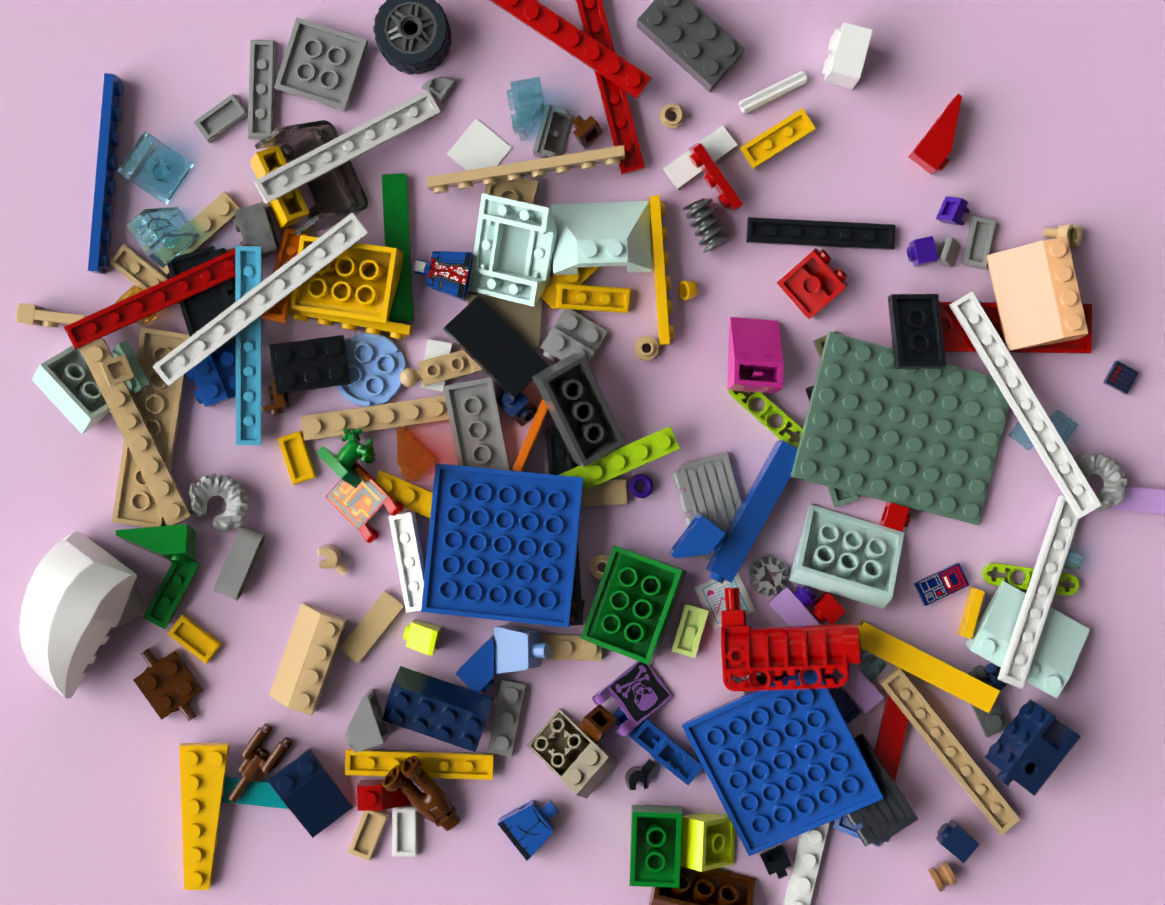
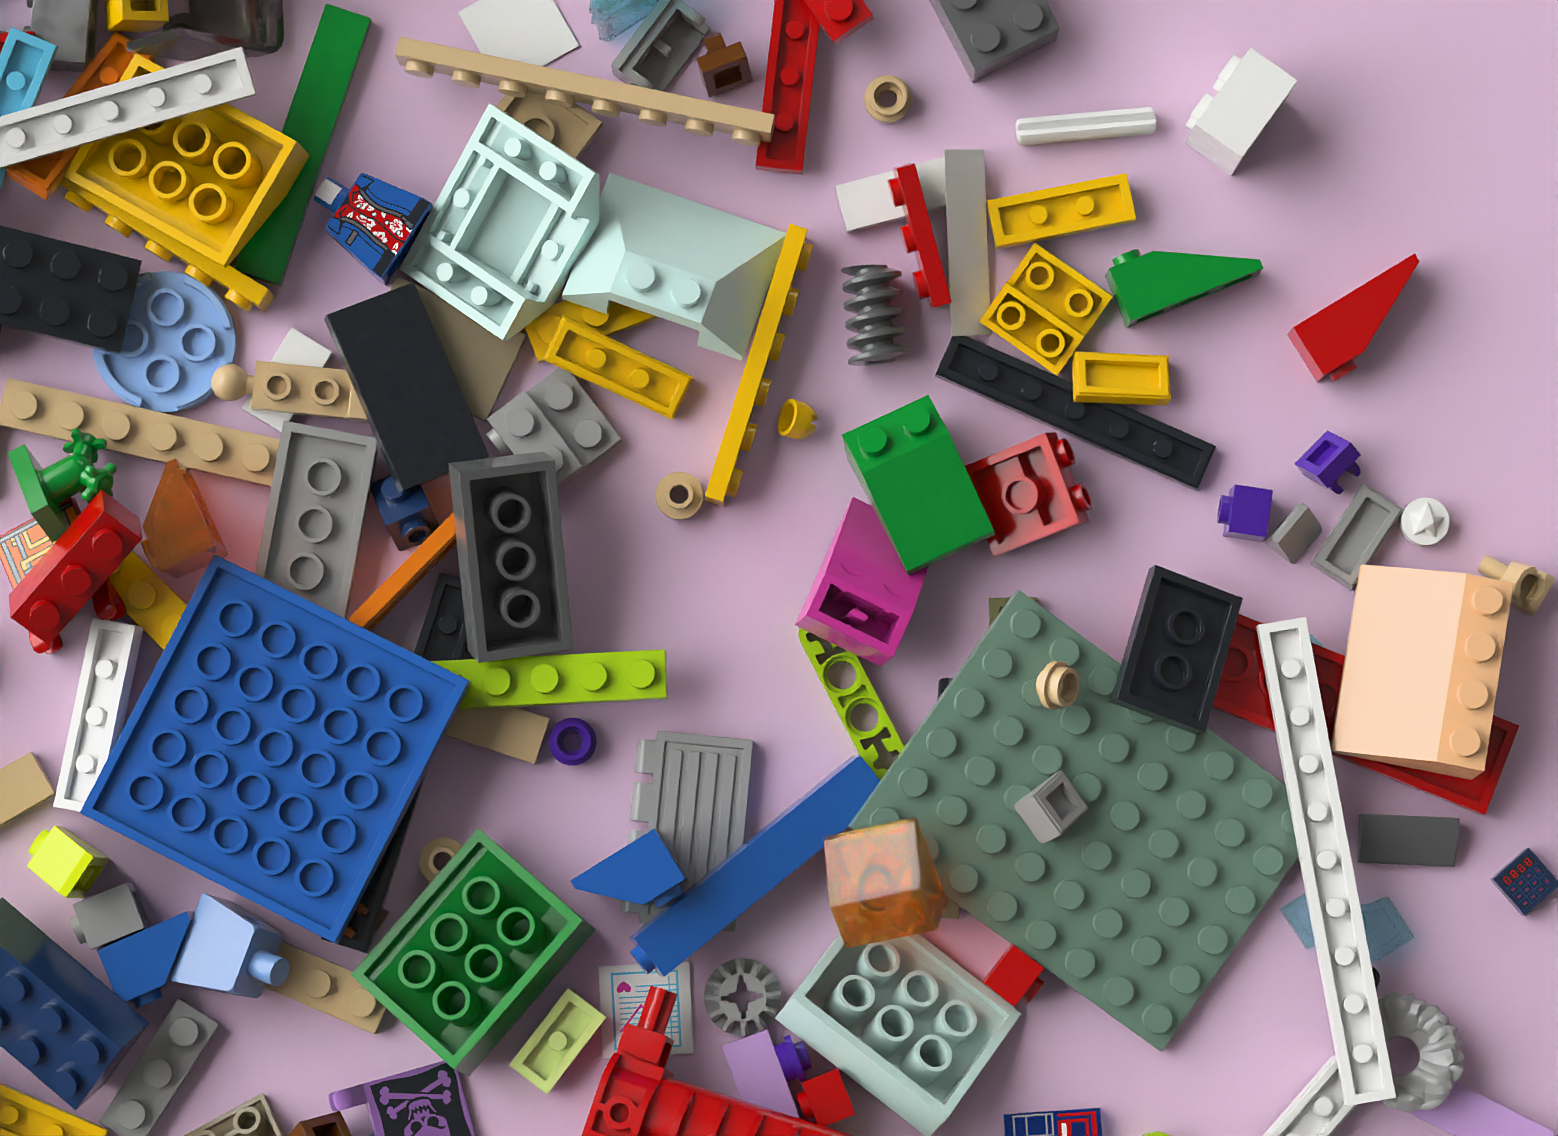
camera: 20 degrees right, 5 degrees down
(372, 496) = (75, 567): none -> red brick
(454, 654) = (109, 916): none -> light grey brick
(738, 171) = (967, 240): none -> white sticker
(760, 299) = (917, 484): none -> green slope
(788, 189) = (1046, 308): none -> yellow slope
(819, 498) = (883, 883): none -> clear orange slope
(837, 209) = (1121, 378): none -> yellow tile
(840, 153) = (1167, 280): none -> green slope
(867, 371) = (1057, 685): none -> tan plate
(885, 430) = (1051, 807): none -> light grey slope
(1009, 222) = (1424, 522): none -> white tile
(1057, 379) = (1407, 840): none -> dark grey slope

